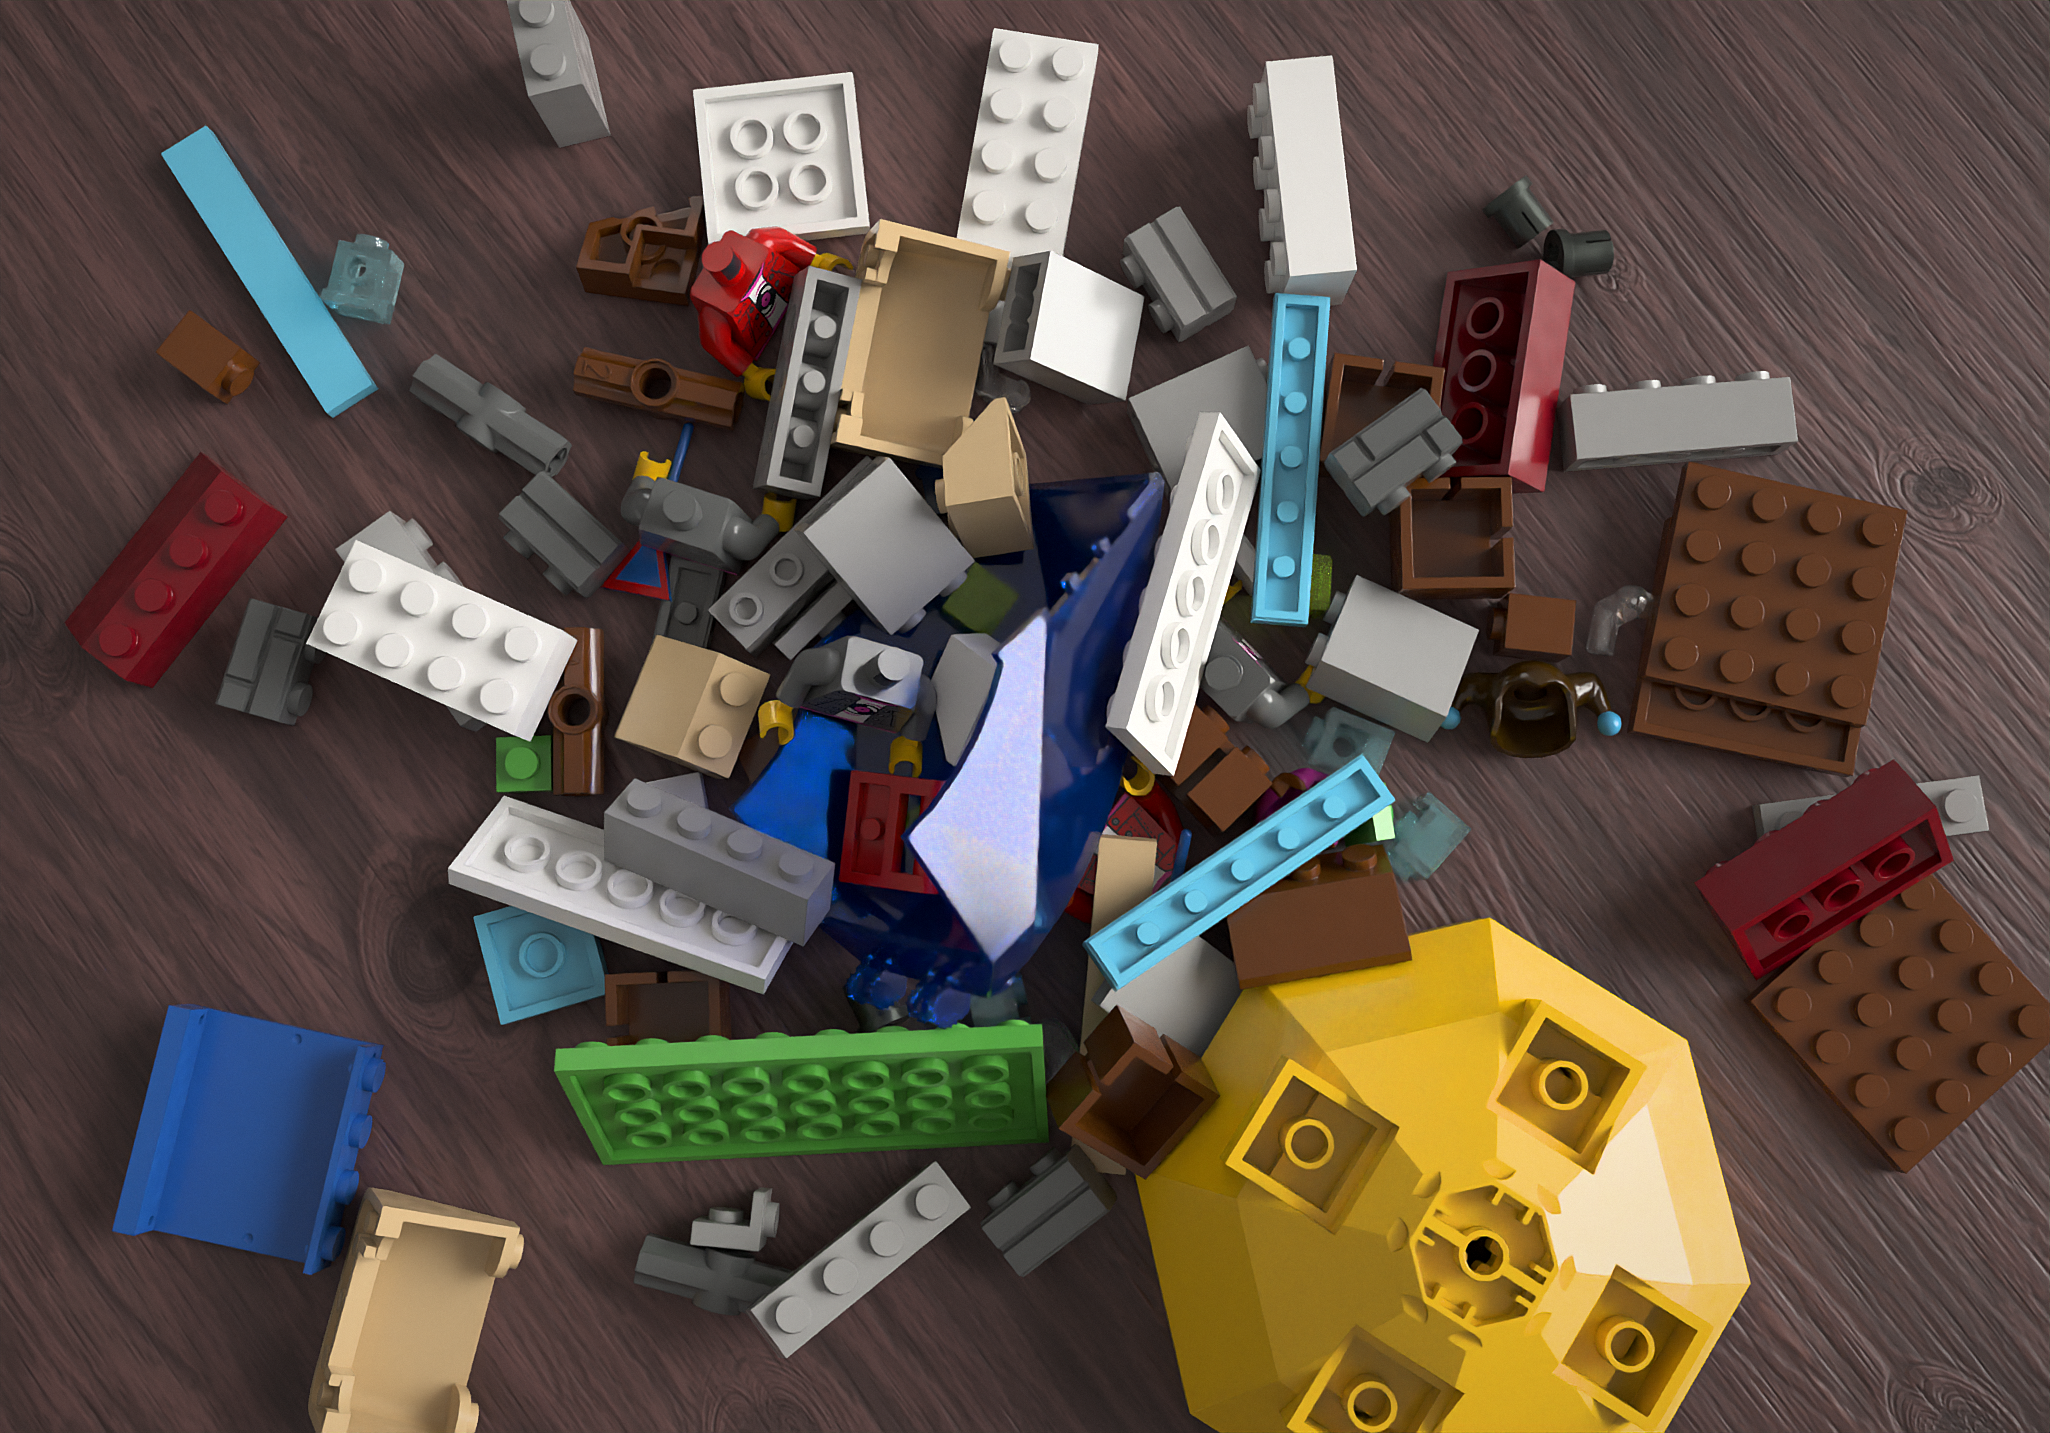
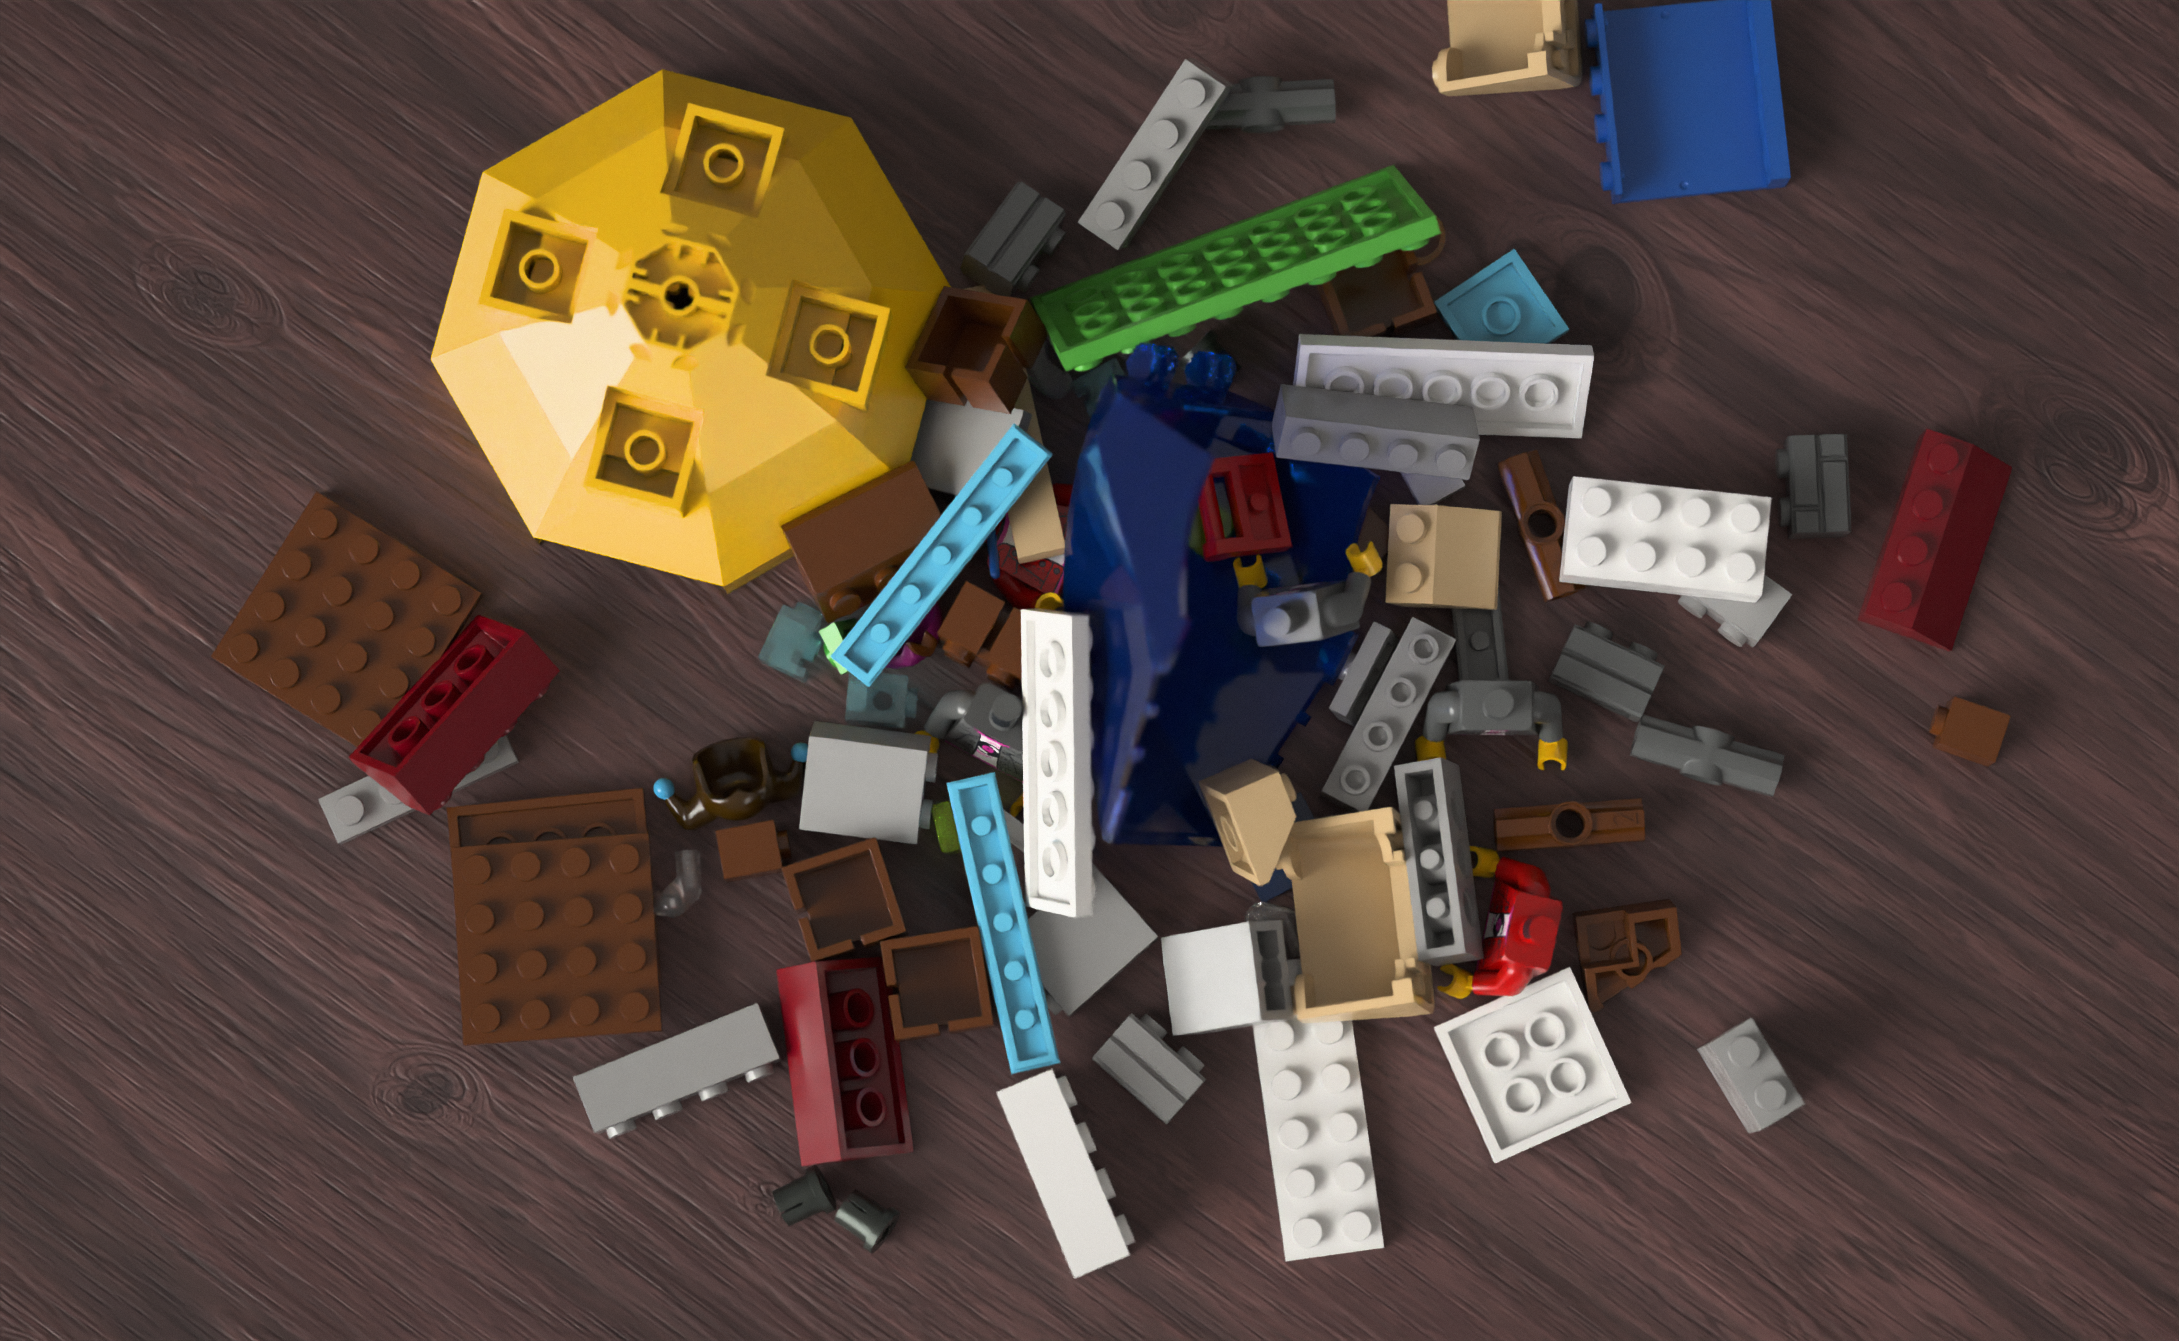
camera: 160 degrees right, 0 degrees up
(269, 271) = (1952, 828): medium azure tile -> none
(373, 293) = (1846, 829): clear light blue brick -> none
(524, 764) = (1568, 462): bright green plate -> none
(646, 569) = (1535, 664): blue piece -> none
(729, 1230) = (1270, 144): light grey bracket -> none
(886, 546) = (1322, 735): light grey brick -> none
(962, 688) = (1215, 645): white slope -> none
(981, 600) = (1229, 724): clear neon green tile -> none
(1394, 453) = (918, 941): dark grey brick -> none

